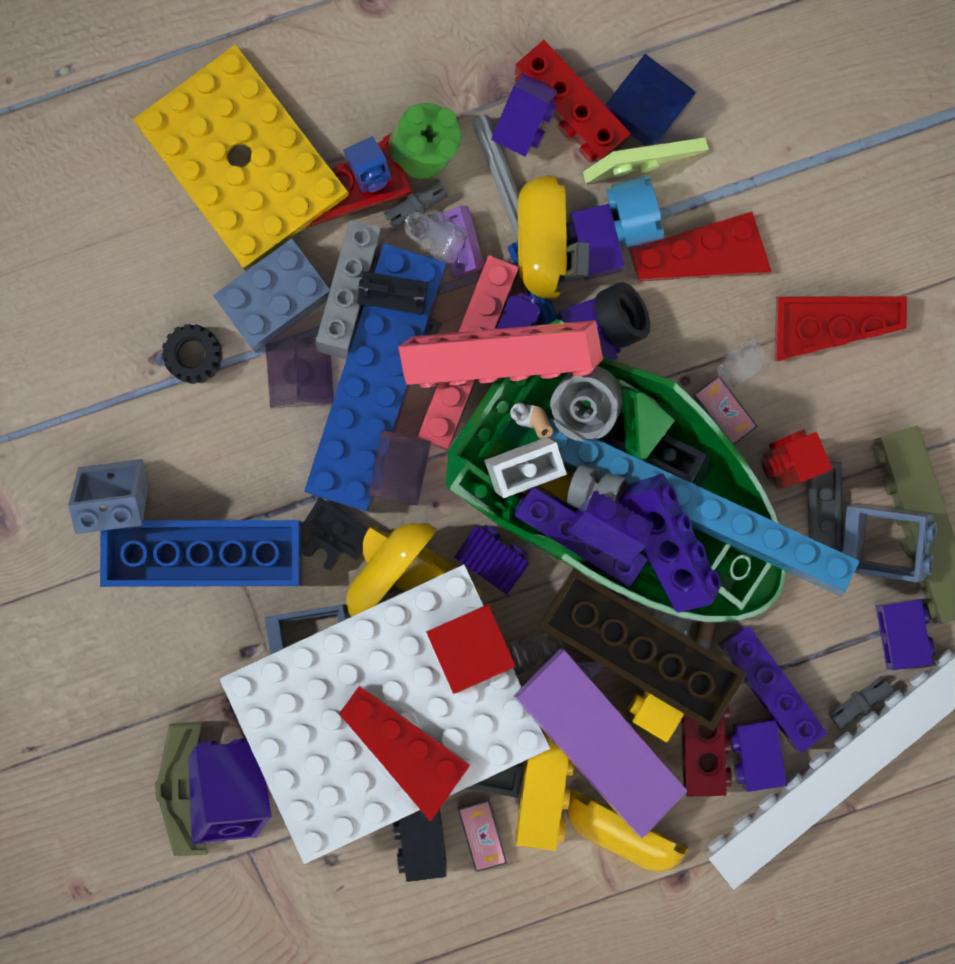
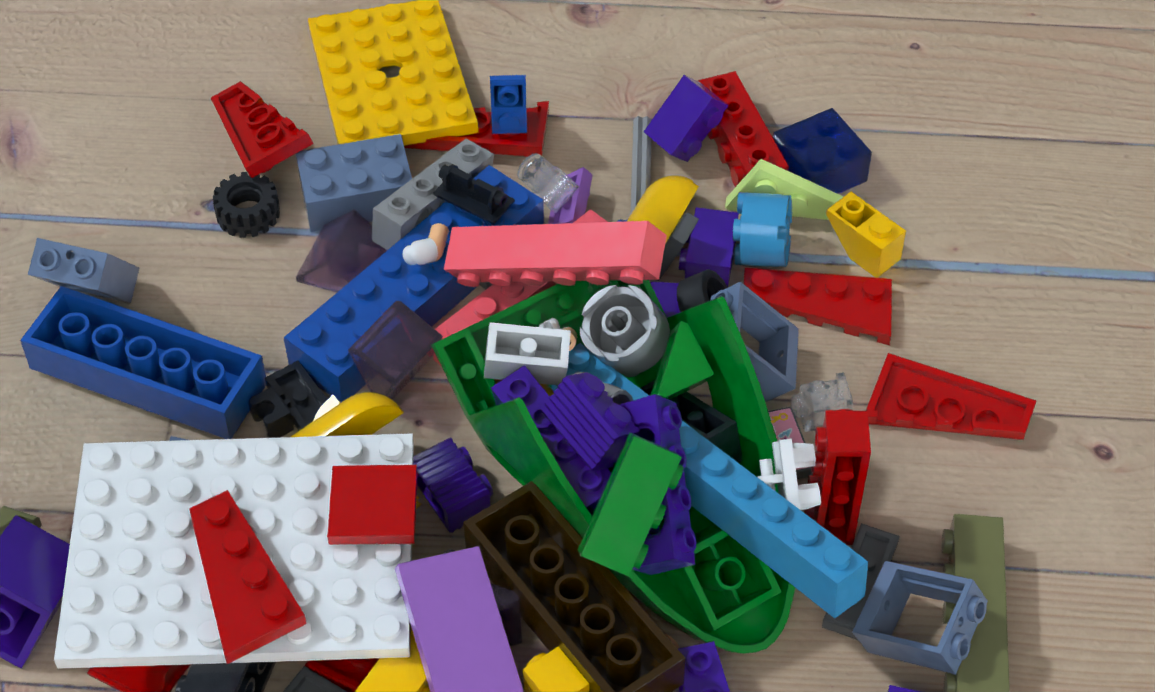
camera: 25 degrees right, 35 degrees down
(166, 281) = (258, 129): none -> red wing
(382, 365) = (427, 249): none -> white arm
(416, 203) = (563, 160): dark grey pin -> none
(425, 140) = (576, 108): bright green brick -> none
(669, 584) = (631, 505): none -> green brick
(685, 321) = (775, 337): none -> sand blue window
(717, 176) = (866, 234): none -> yellow slope
(761, 491) = (787, 459): none -> white hips

